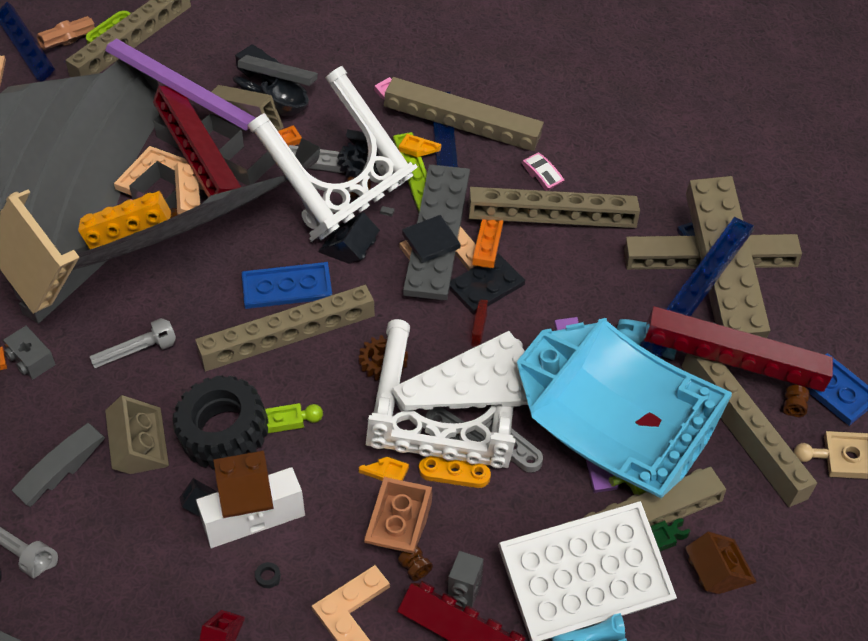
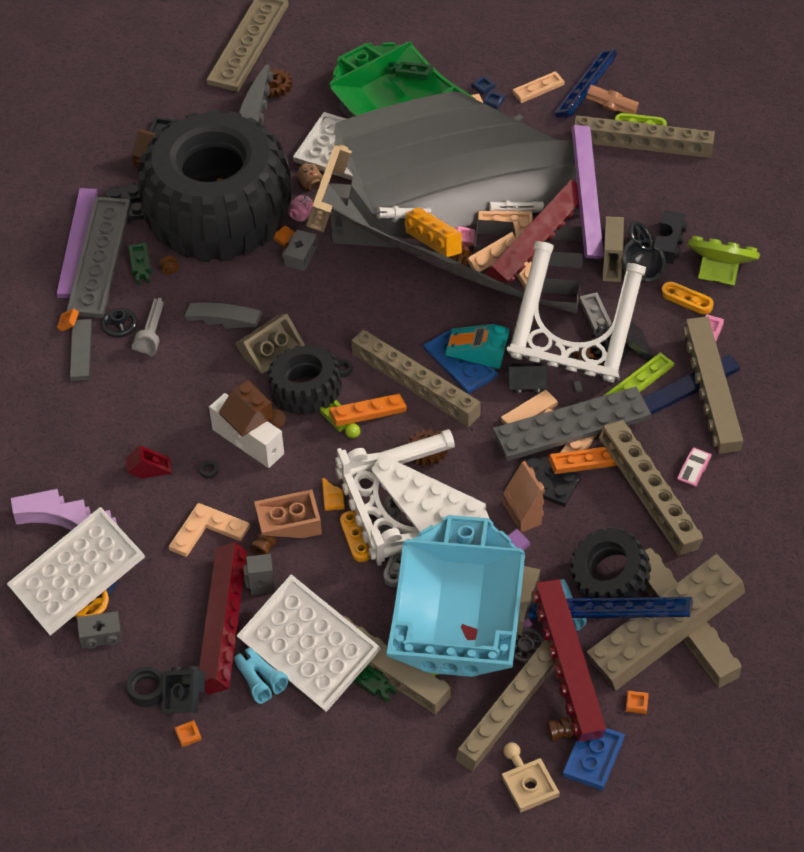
camera: 65 degrees right, 0 degrees up
(67, 240) = (395, 212): none -> white pin
(137, 343) = (358, 308): light grey piece -> none
(144, 142) = (537, 206): none -> white pin
(277, 70) = (662, 243): dark grey tile -> none
(286, 256) = (479, 344): none -> teal slope
(290, 135) = (610, 289): orange tile -> none
(298, 387) = (367, 410): none -> orange plate
(324, 44) = (719, 260): none -> lime bracket
(328, 97) = (681, 293): none -> light orange plate
(391, 259) = (532, 407): none -> light nougat tile
(418, 146) = (656, 372): light orange tile -> none
(431, 238) = (551, 419): black tile -> none
(479, 323) = (493, 492): clear red tile -> none
(514, 300) = (524, 498): none -> nougat slope
(647, 247) = (600, 546): none -> black tyre
(719, 563) = (372, 728): reddish brown slope -> none
(787, 330) = (637, 702): none -> orange tile

